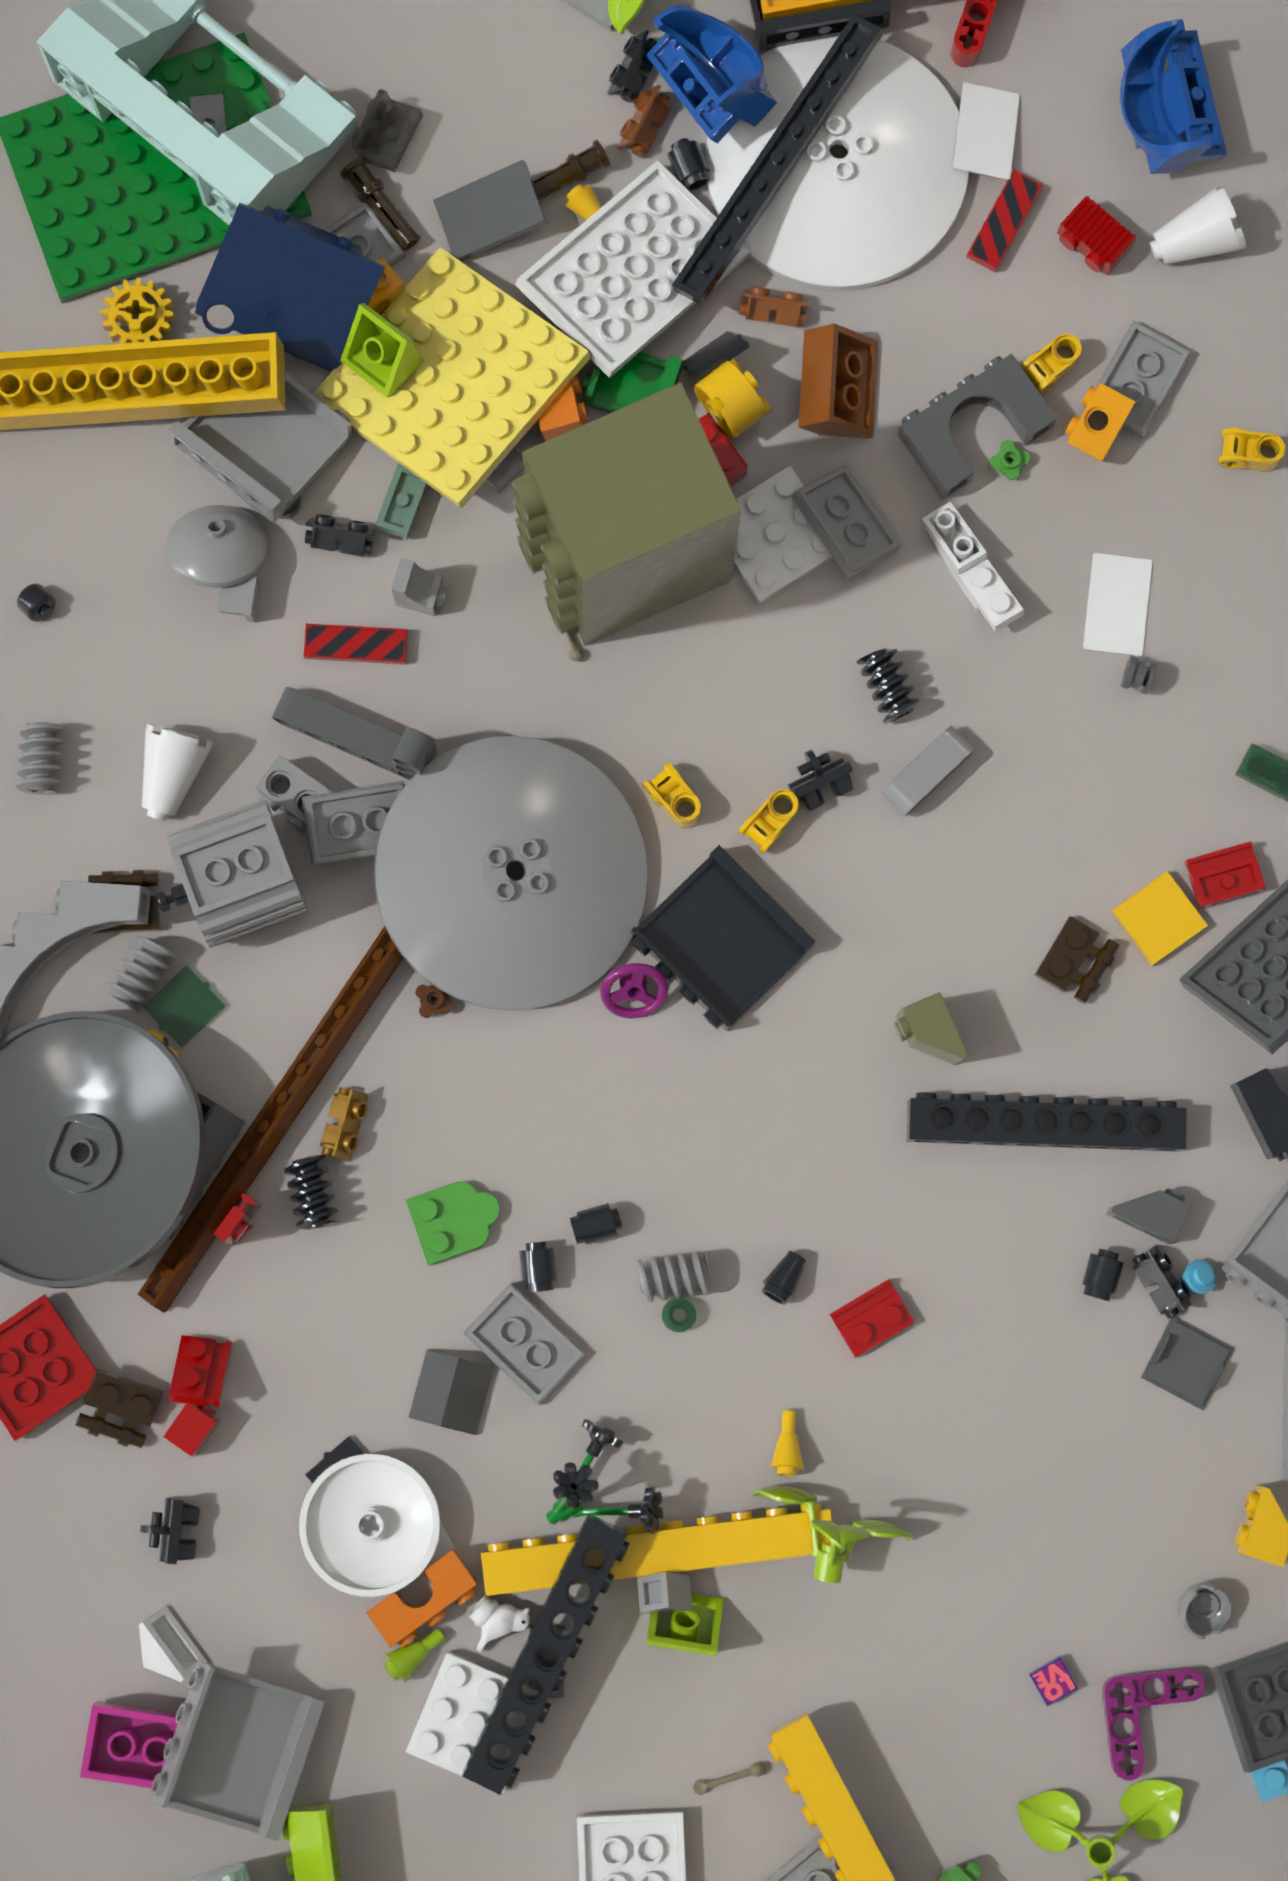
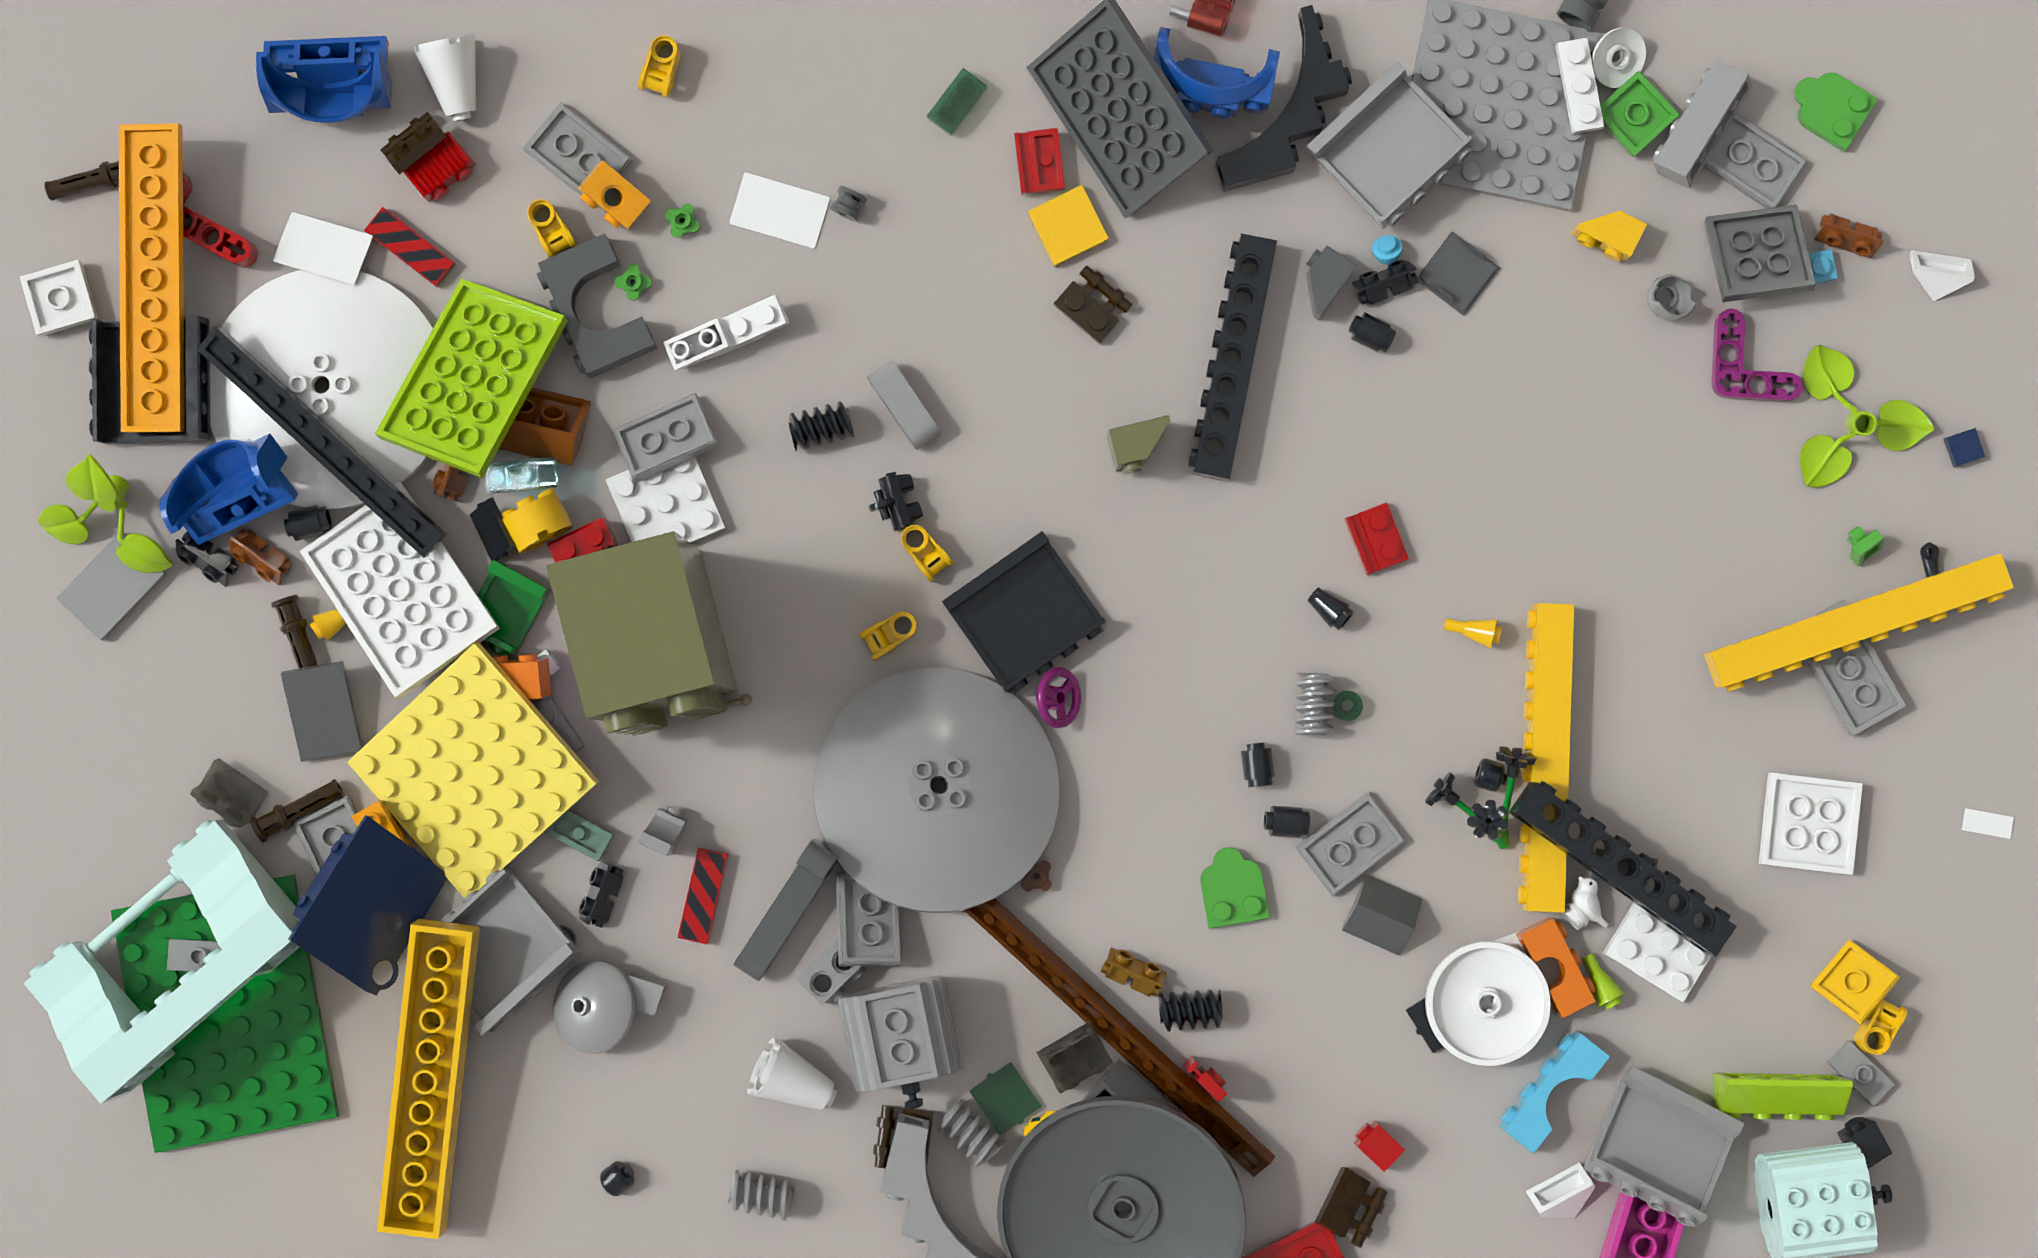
camera: 80 degrees left, 5 degrees up
(135, 302) = (351, 1045): yellow gear -> none
(172, 1546) = (1478, 1177): black hips -> none
(200, 1371) = (1331, 1131): red plate -> none
(240, 1073) = (1075, 1057): none -> clear smoke bracket
(321, 1638) = (1528, 1119): none -> medium azure arch
(379, 351) = (441, 832): lime slope -> none
(627, 1488) = (1490, 775): none -> black piece
(664, 1592) = (1586, 757): light grey panel -> none
(688, 1630) = (1612, 744): lime slope -> none
(701, 1786) = (1750, 753): dark tan hinge -> none
(778, 374) = (521, 475): none -> clear light blue brick
(831, 1557) = (1569, 602): lime plant -> none
(874, 303) = (471, 377): none -> lime plate
(1053, 1681) = (1709, 437): tile -> none
(1082, 510) = (690, 224): none -> bright green plate
(1117, 203) = (413, 142): none -> dark brown plate

